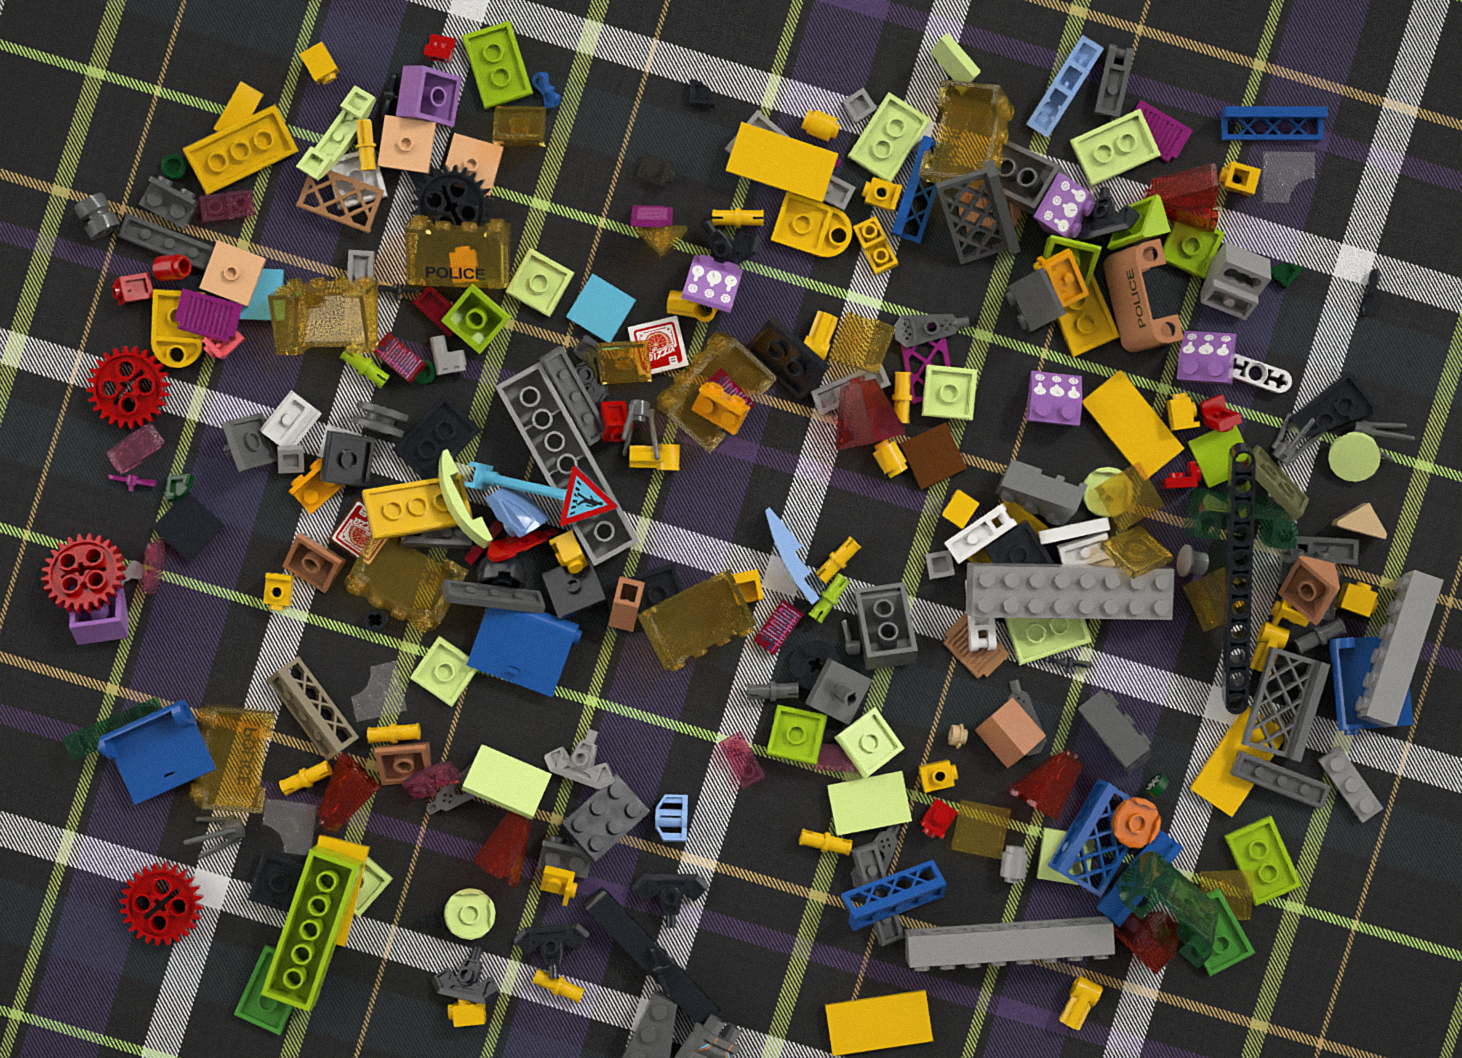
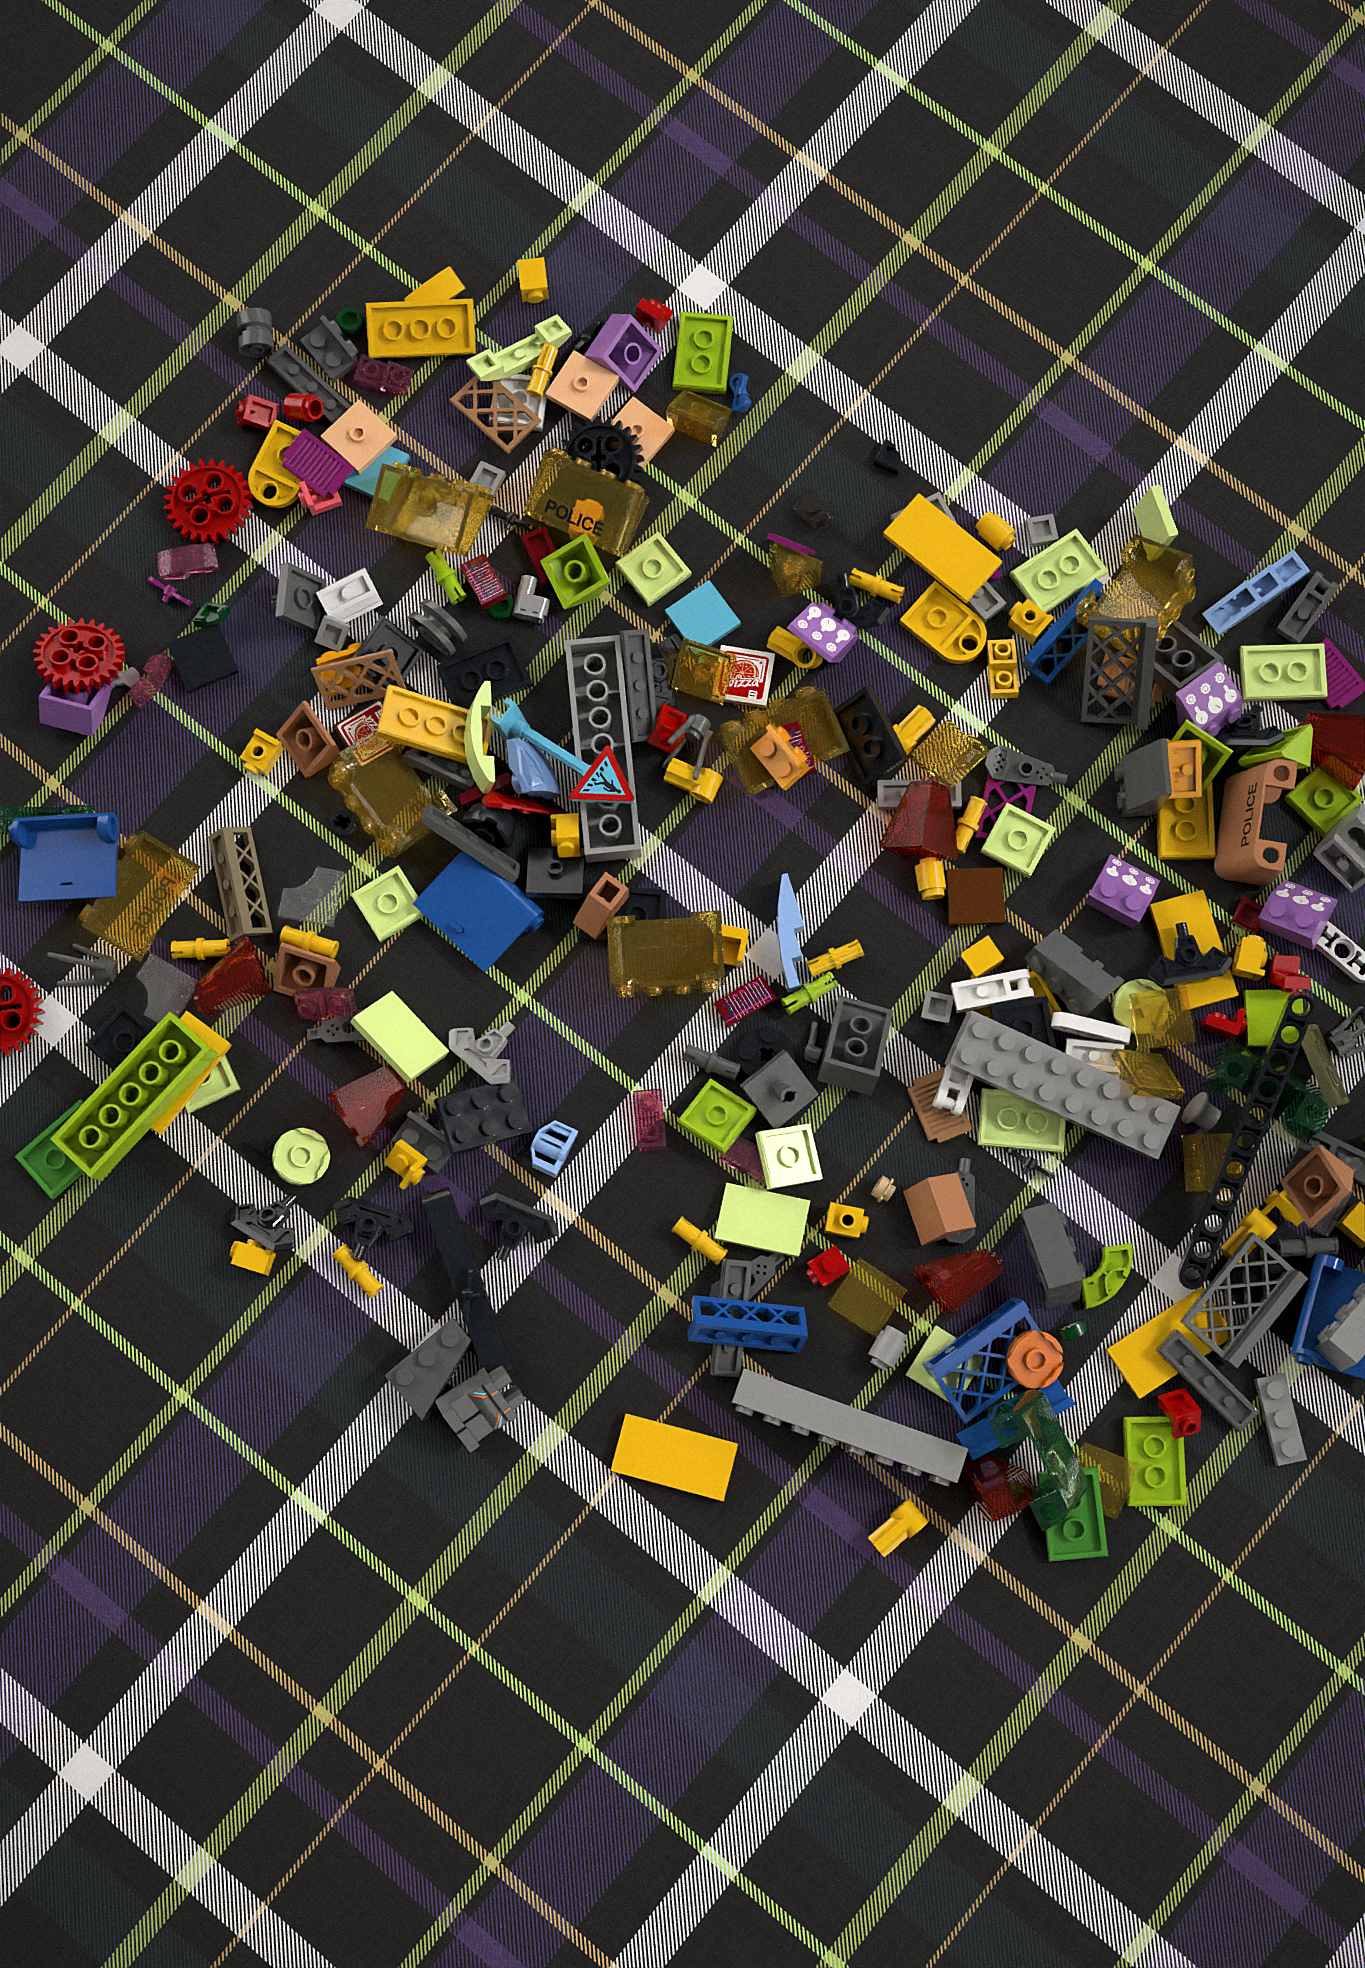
camera: 25 degrees right, 10 degrees down
(332, 508) = (351, 697): none -> medium nougat window
(1133, 439) = (1188, 961): none -> black piece
(1165, 375) = (1247, 915): none -> dark red tile
(1169, 727) = (1109, 1276): none -> lime tile
(1269, 814) = (1181, 1411): none -> red bracket

